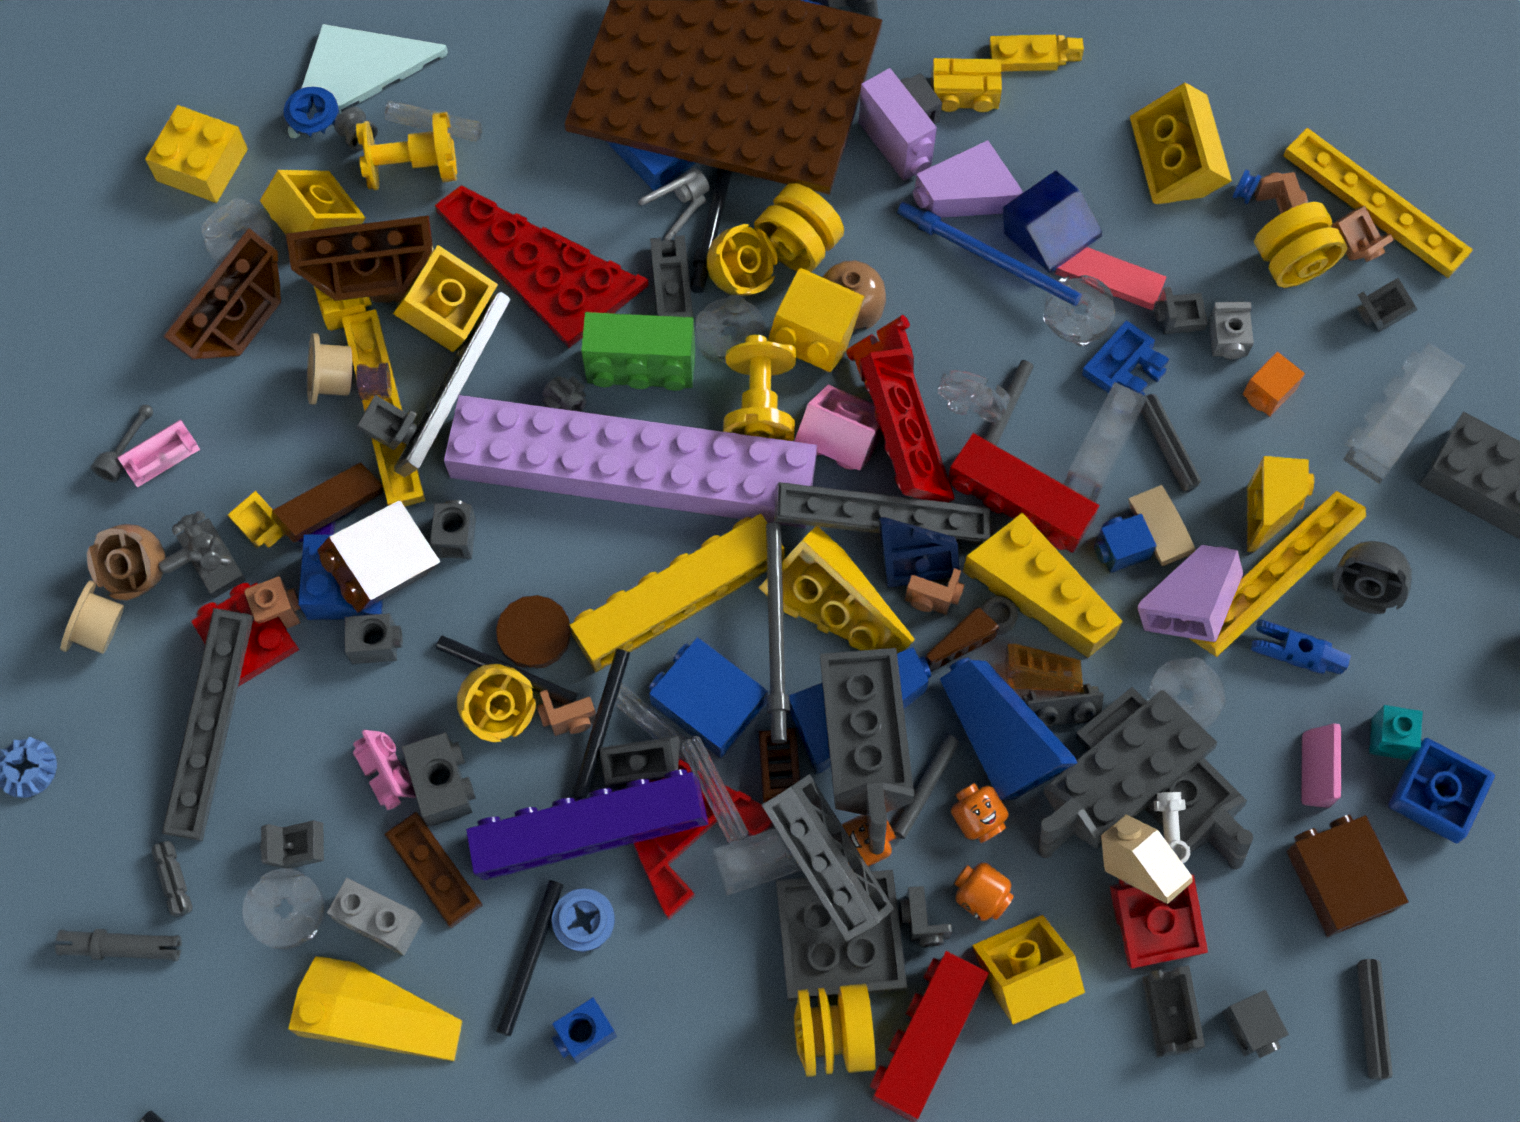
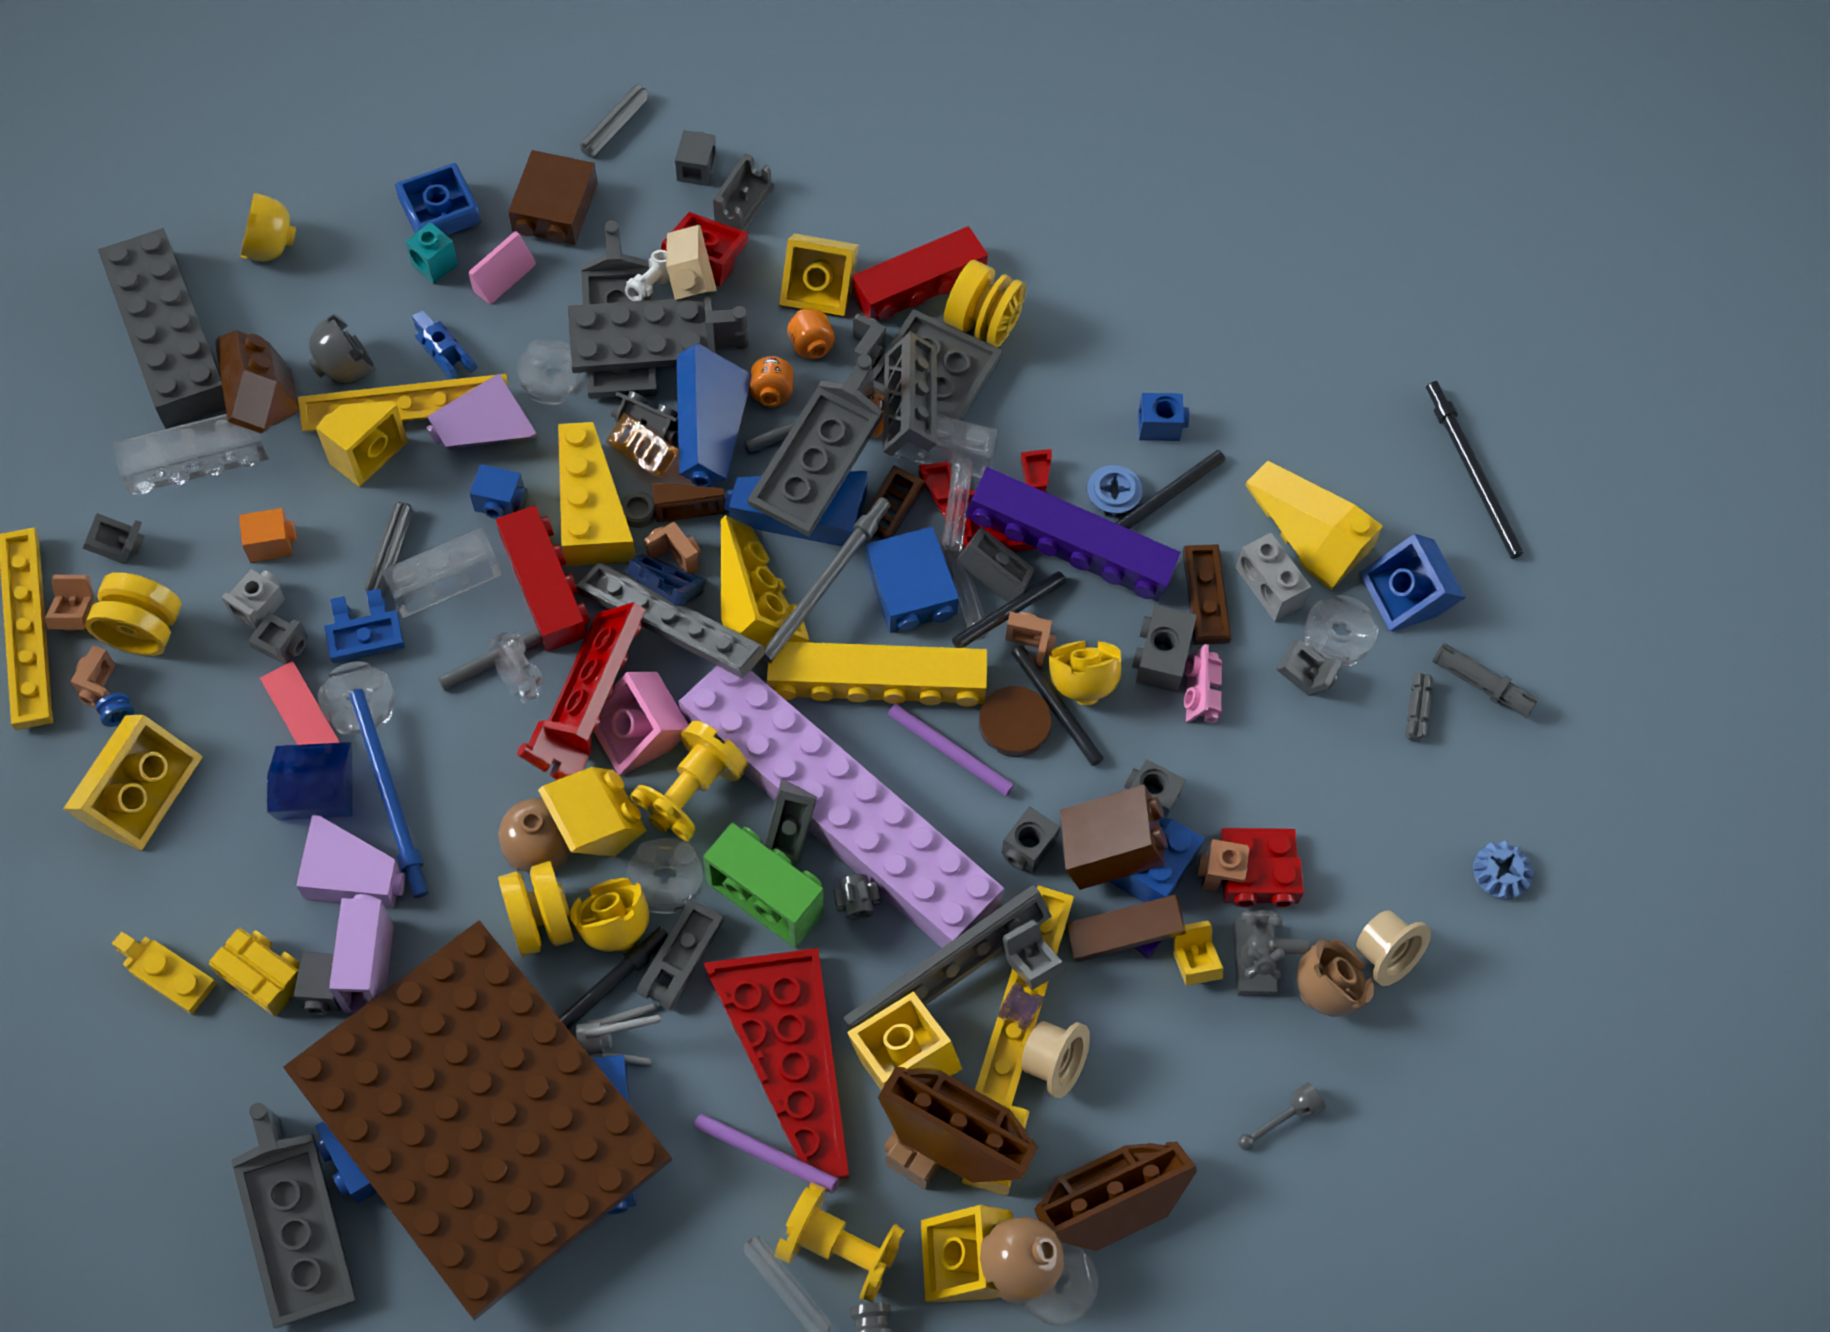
camera: 150 degrees left, 5 degrees down
(158, 453) = (1236, 1078): bright pink hinge -> none
(207, 724) = (1329, 800): dark grey tile -> none
(234, 1003) = (1411, 583): none -> blue slope
(263, 204) = (1022, 1259): none -> medium nougat cylinder
(505, 184) = (766, 1153): none -> medium lavender piece
(567, 572) = (950, 750): none -> medium lavender piece
(656, 410) = (790, 820): none -> dark grey slope
(1164, 524) = (452, 495): tan slope -> none
(1409, 492) = (254, 382): none -> reddish brown wedge

